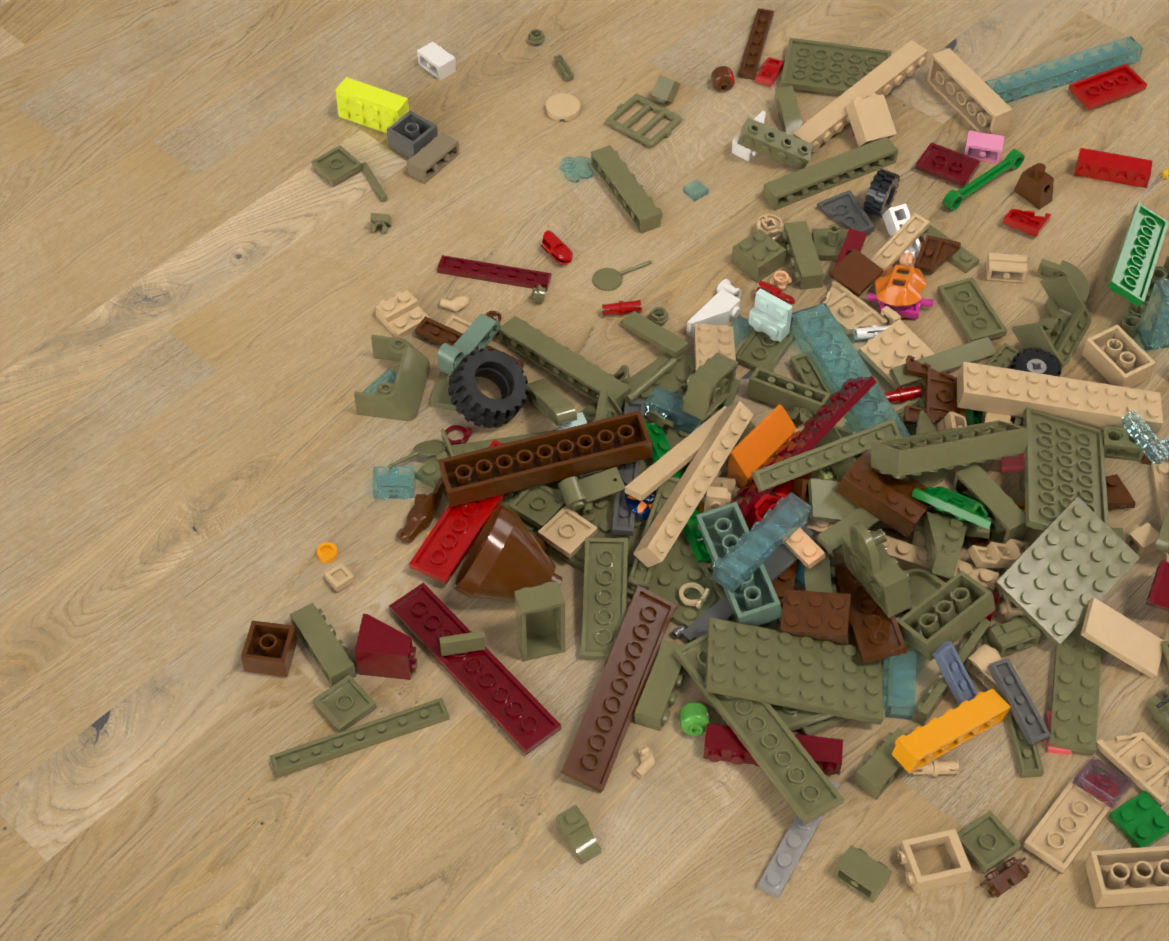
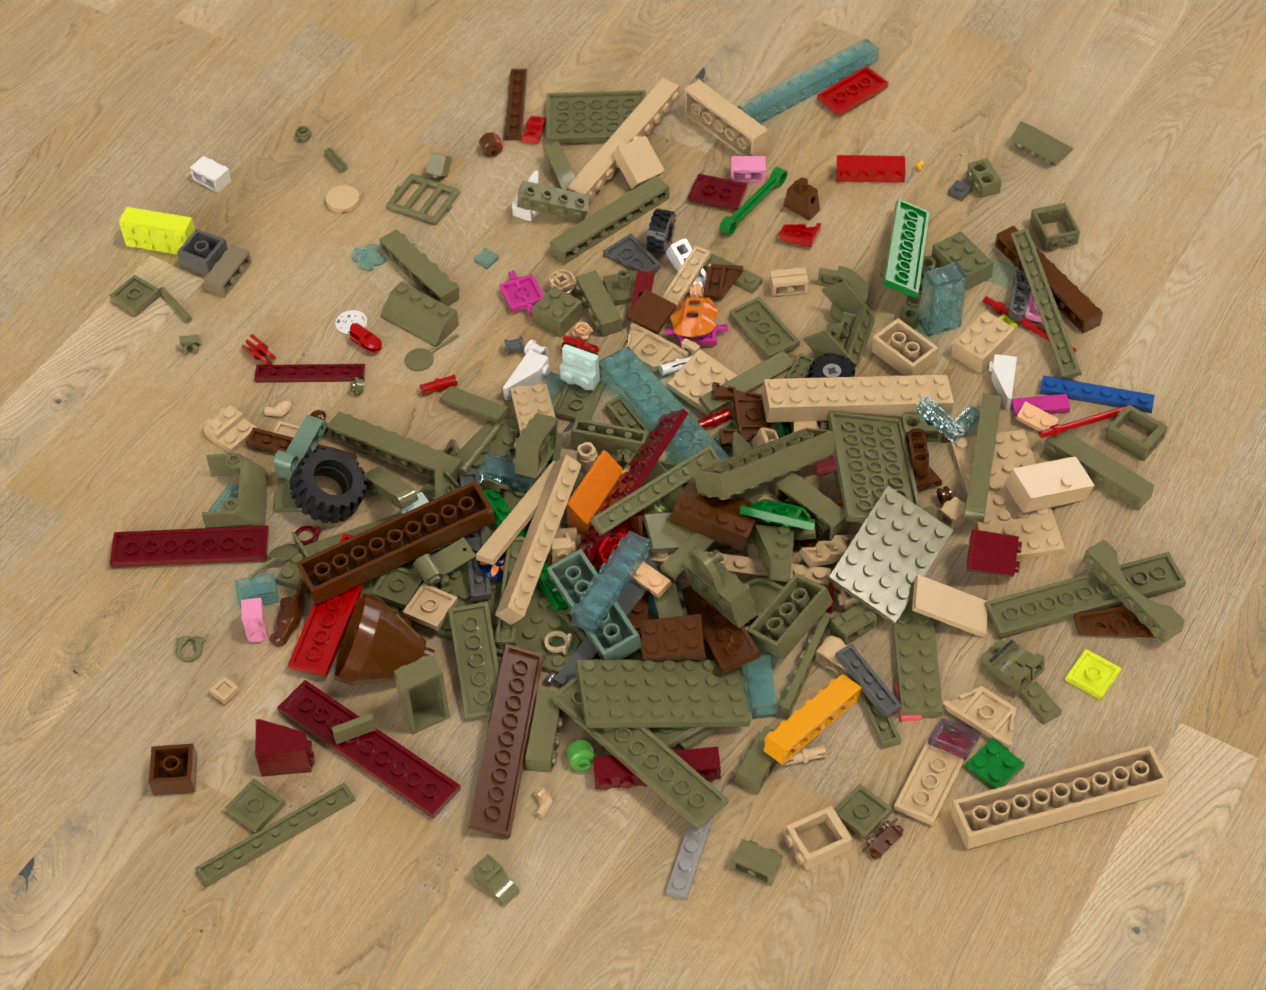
camera: 10 degrees left, 0 degrees up
(322, 644) = (222, 755): olive brick -> none
(323, 522) = (198, 642): none -> olive piece
(327, 552) = (207, 669): light orange tile -> none
(336, 424) = (190, 546): none -> dark red plate
(384, 511) = (254, 620): none -> bright pink brick
(448, 241) = (259, 350): none -> red arm
(541, 225) = (346, 318): none -> clear sticker
(617, 234) = (419, 314): none -> olive slope
(659, 315) = (474, 386): olive plate -> none
(707, 282) = (514, 345): none -> dark grey bush
(724, 230) = (521, 292): none -> dark pink plate
(761, 407) = (586, 455): none -> tan plant
(954, 672) = (806, 666): sand blue tile -> none
(1115, 468) = (918, 452): none -> reddish brown beam
(1135, 518) = (944, 494): none -> reddish brown bush

